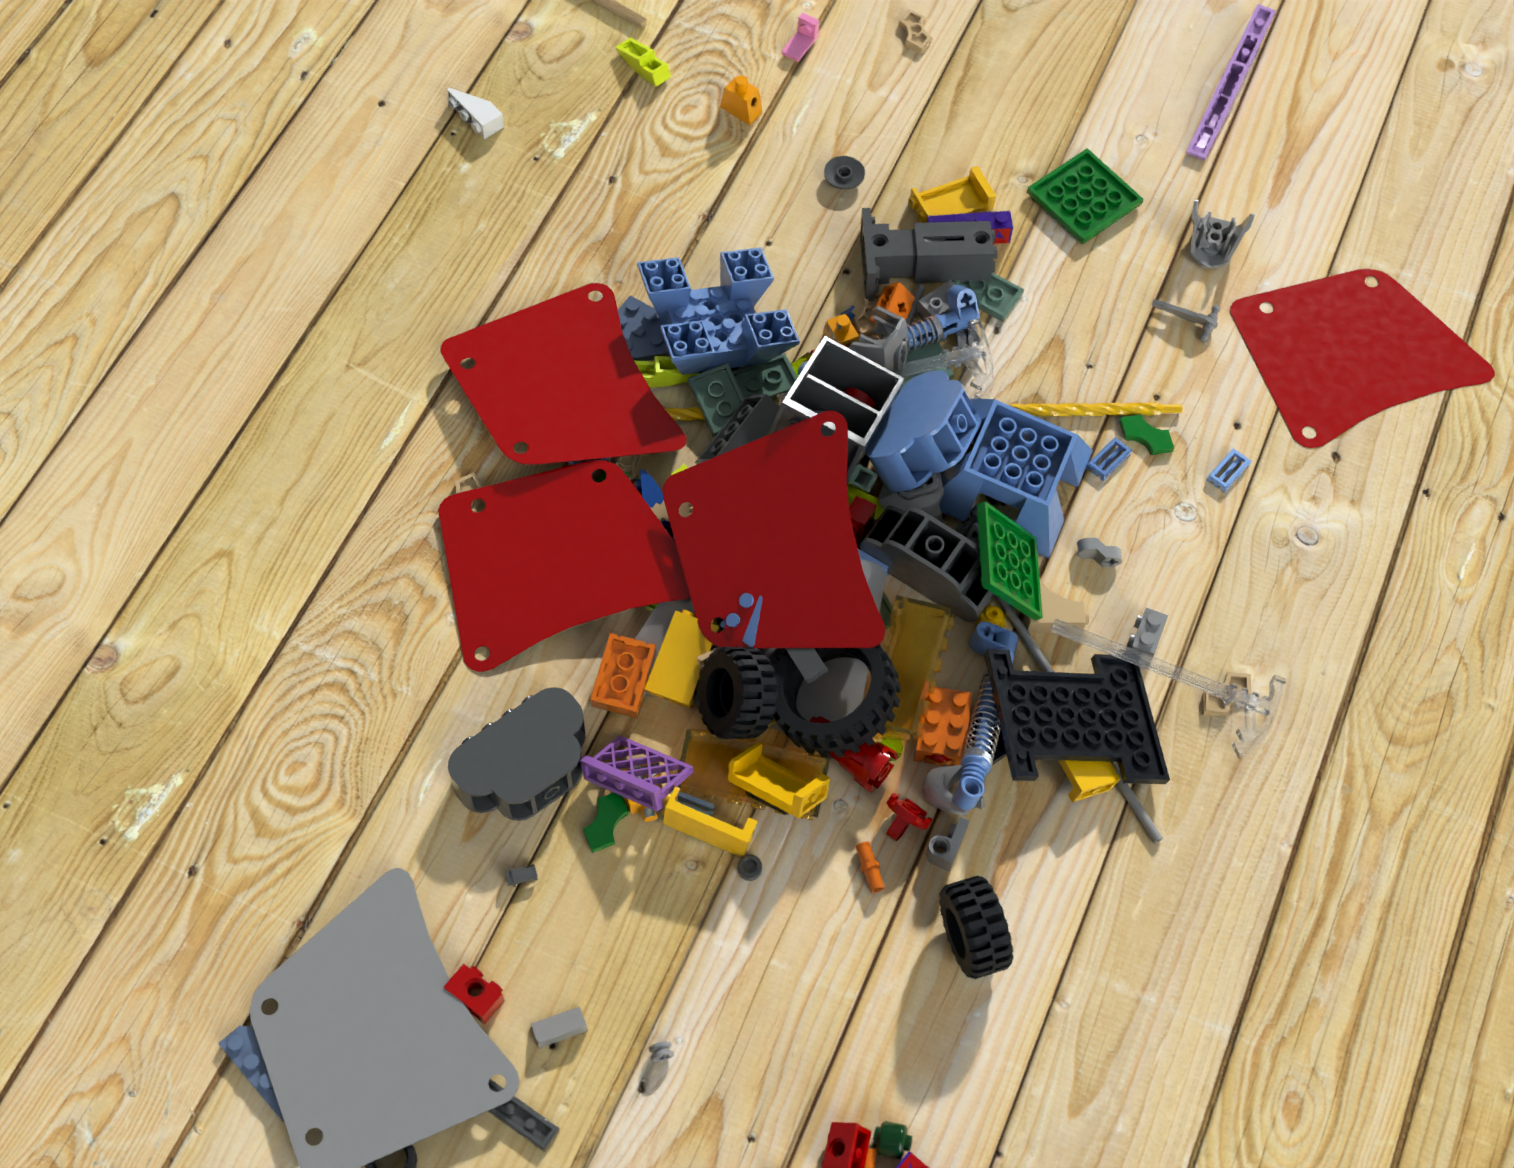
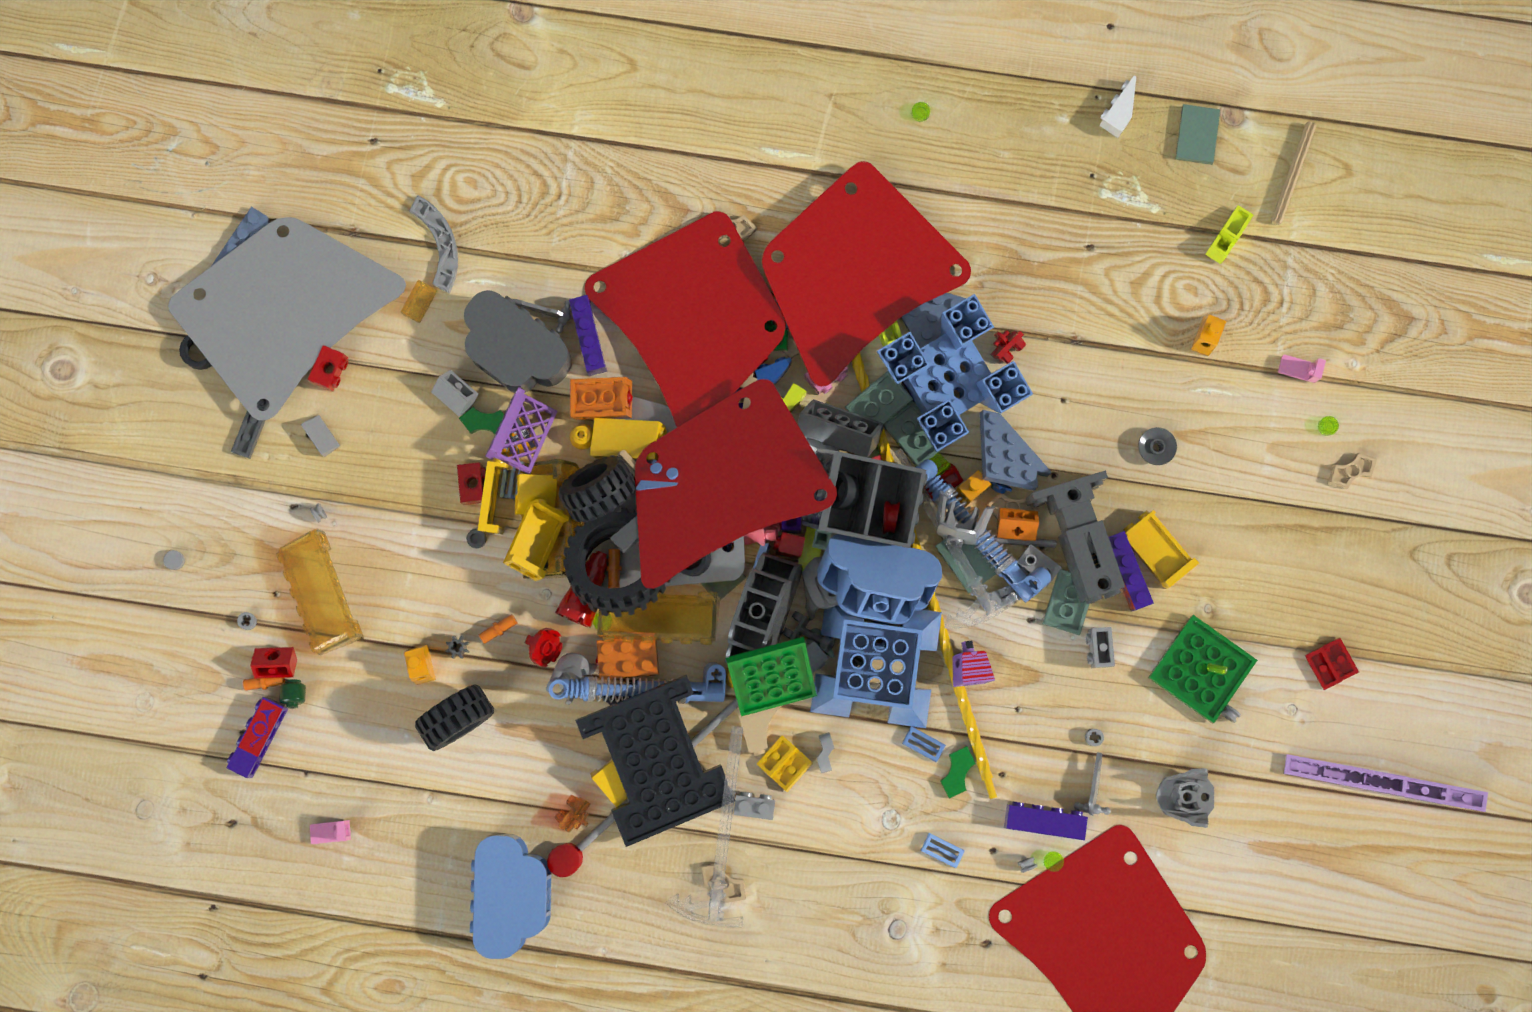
camera: 80 degrees right, 20 degrees up
(356, 814) = (445, 242): none -> light grey tile
(403, 286) = (920, 111): none -> clear neon green tile
(425, 863) = (418, 301): none -> clear yellow slope
(503, 699) = (562, 316): none -> light grey piece
(521, 875) = (426, 373): dark grey pin -> none
(528, 61) = (1197, 134): none -> sand green tile
(538, 674) = (588, 335): none -> dark purple brick
(560, 842) = (454, 392): none -> light grey brick
(659, 716) = (581, 442): none -> yellow cone
(675, 459) = (825, 389): none -> bright pink bracket
(690, 862) = (466, 473): none -> red brick
(695, 274) = (1005, 342): none -> red hips
(712, 774) = (532, 488): none -> yellow slope
(767, 1070) = (318, 593): none -> clear yellow windscreen
(816, 299) = (1006, 455): none -> sand blue wing
(828, 712) = (614, 568): none -> orange pin
(864, 37) = (1328, 426): none -> clear neon green tile
(886, 914) = (452, 645): none -> dark grey gear
(891, 967) = (419, 664): none -> light orange torso
(949, 845) = (529, 686): light grey plate -> none
(1036, 388) = (971, 667): none -> medium lavender torso
(1044, 269) = (1101, 647): none -> light grey brick
(1083, 1133) = (330, 832): none -> bright pink bracket
(1089, 177) = (1217, 668): none -> clear neon green tile
(1103, 94) = (1331, 663): none -> red slope
(1103, 597) = (784, 763): none -> yellow slope
(1124, 843) = (575, 816): none -> clear orange hips
(1135, 298) = (1091, 742): none -> light grey bush
(1137, 183) = (1230, 713): none -> light grey bush
(1170, 857) = (564, 860): none -> red piece
(1206, 926) = (509, 896): none -> medium blue brick
(1216, 367) = (1046, 822): none -> dark purple brick
(1258, 372) = (1053, 861): none -> clear neon green tile
(1259, 394) = (1027, 864): none -> light grey bush

